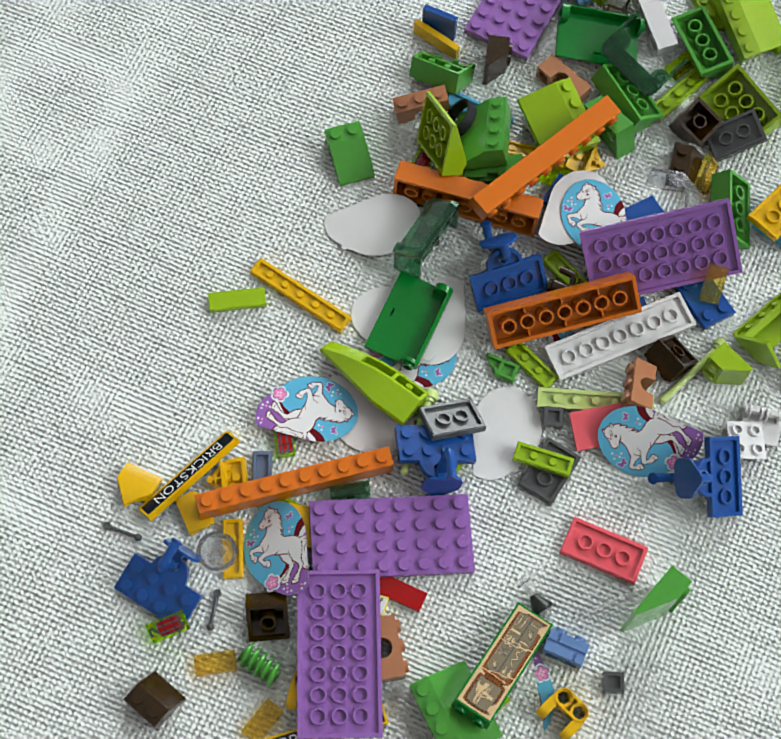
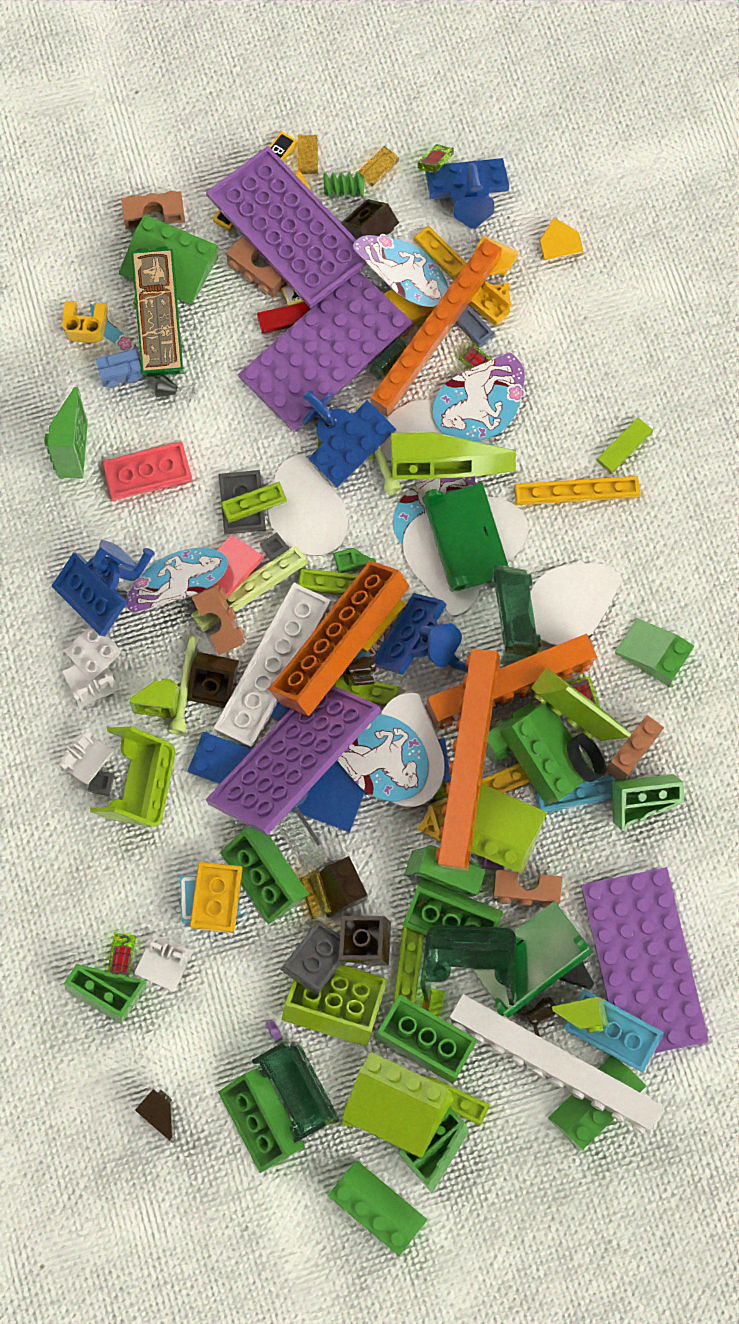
camera: 140 degrees right, 5 degrees up
(107, 526) = (552, 199): dark grey hinge -> none
(154, 699) = (398, 107): dark brown slope -> none
(189, 475) = (525, 277): tile -> none
(216, 552) = (446, 226): clear cylinder -> none
(217, 593) = (423, 214): dark grey hinge -> none
(436, 39) = (680, 836): yellow tile -> none
(440, 21) = (693, 848): blue tile -> none
(451, 419) = (355, 473): tile -> none
(497, 57) = (609, 852): dark brown slope -> none
(612, 682) = (62, 372): dark grey plate -> none
(713, 283) = (224, 769): clear yellow tile -> none

